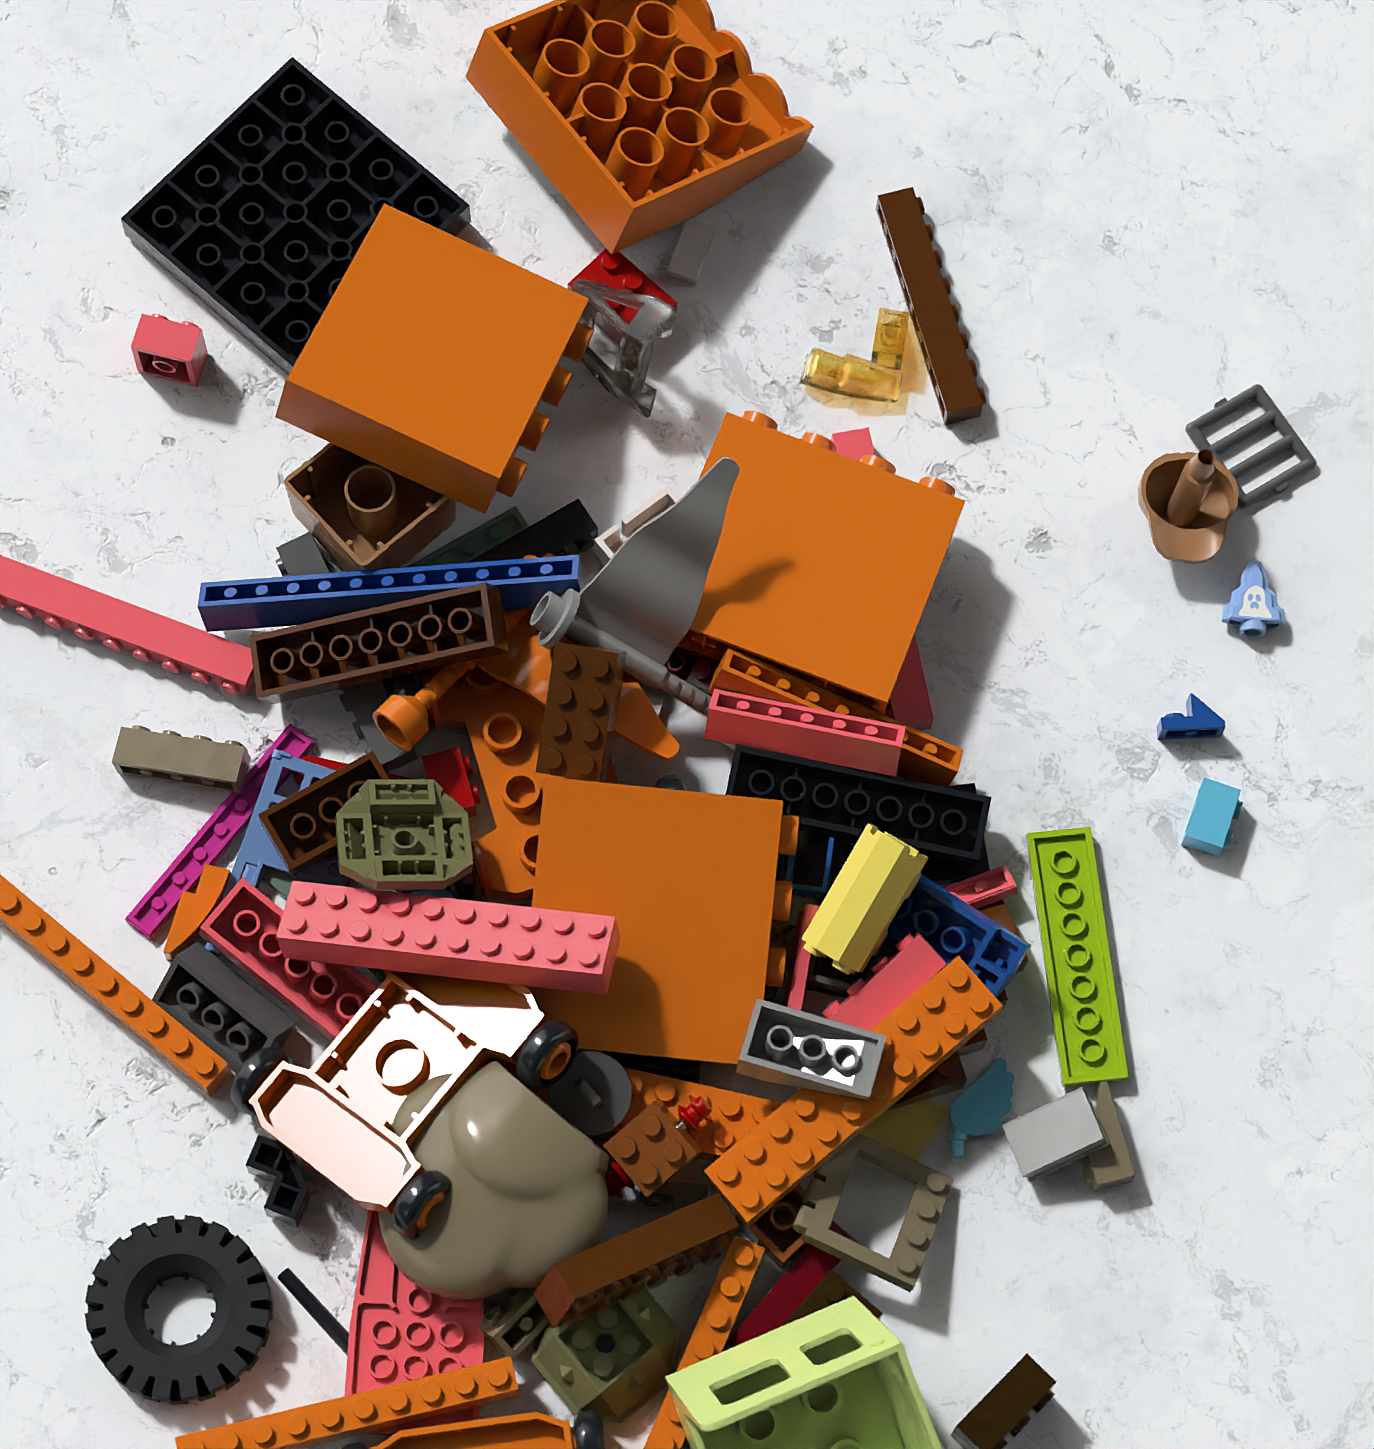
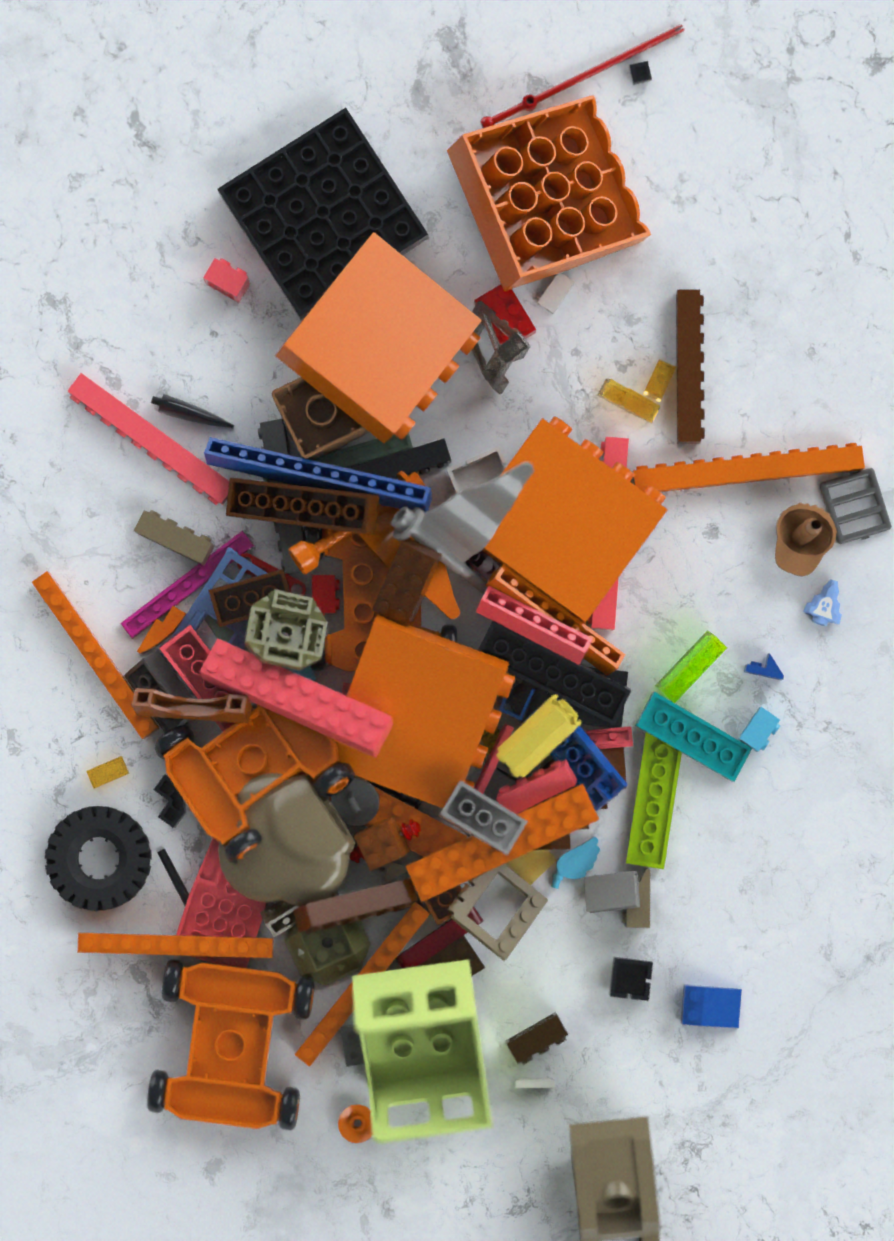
camera: 20 degrees right, 15 degrees up
(150, 565) = (186, 411): none -> black piece
(161, 1165) = (107, 772): none -> clear yellow tile
(219, 1018) = (223, 709): none -> dark orange arch
(1072, 746) = (691, 666): none -> clear neon green brick
(1083, 424) = (751, 469): none -> orange brick
(1111, 852) = (693, 736): none -> teal plate
(1126, 1269) = (630, 978): none -> black piece
(1273, 1281) = (710, 1006): none -> blue slope

